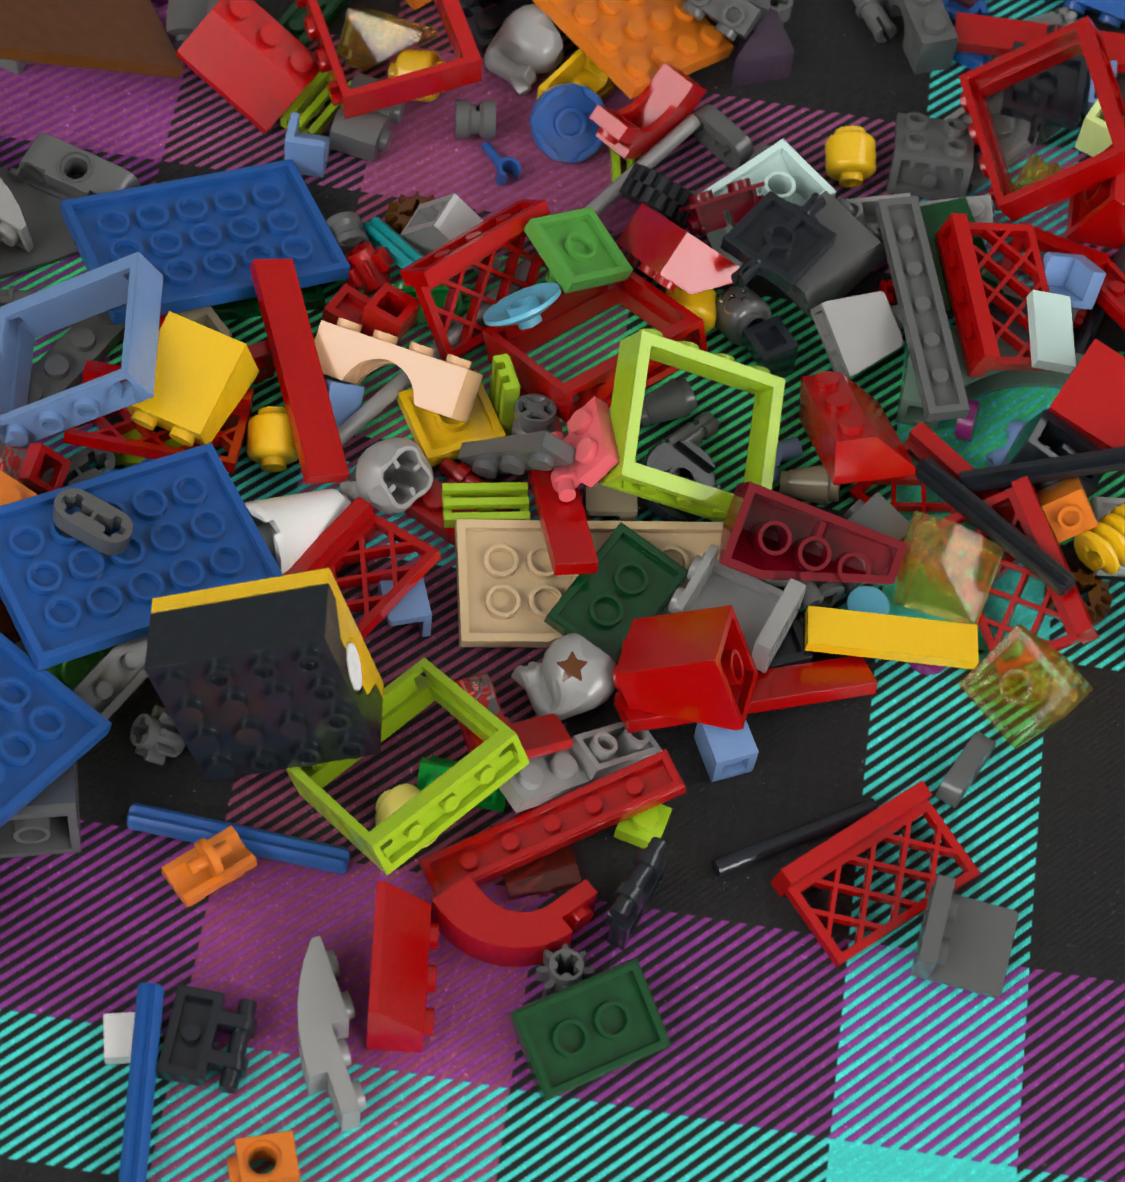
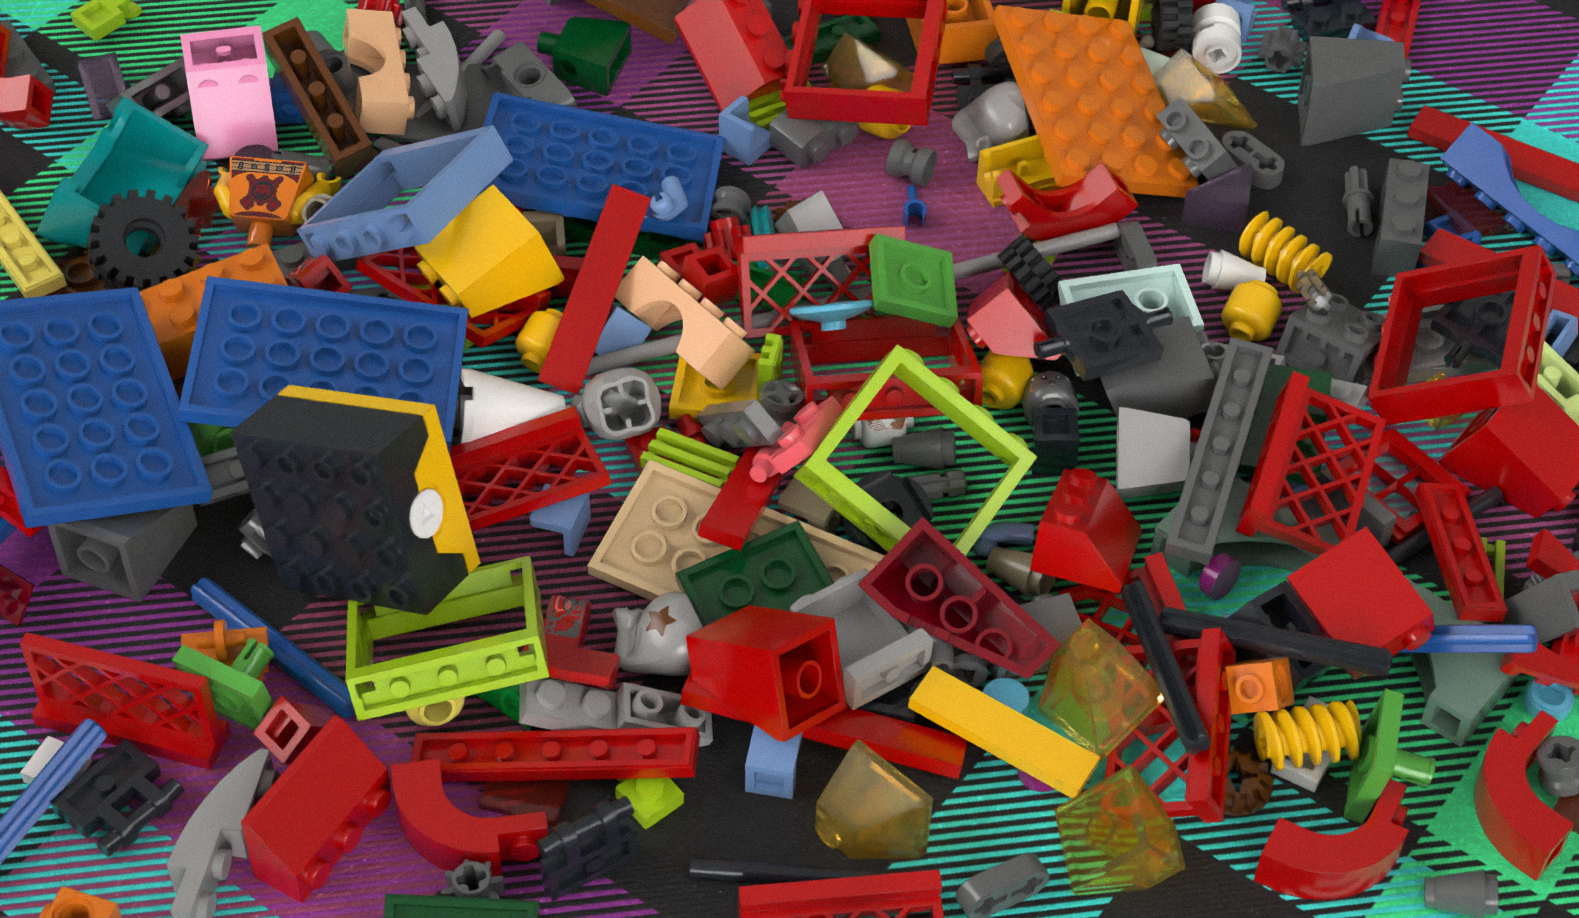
camera: 35 degrees right, 10 degrees down
(92, 521) = (301, 324): dark grey beam -> none
(101, 116) = (588, 52): none -> dark green torso
(163, 954) = (177, 733): none -> red fence
(248, 896) = (234, 687): none -> bright green tile
(309, 251) = (672, 201): none -> medium blue arm
(328, 908) = (290, 728): none -> red brick
(563, 125) = (978, 192): blue tile -> none
(708, 210) = (1062, 289): dark red hinge -> none
(808, 123) = (1226, 271): none -> white cone
(839, 752) = (873, 809): none -> clear yellow slope
(845, 88) = (1279, 252): none -> yellow piece
(902, 119) = (1314, 290): none -> dark grey axle
(1051, 331) = (1342, 514): light aqua tile -> none
(1073, 277) = (1399, 486): medium blue panel -> none

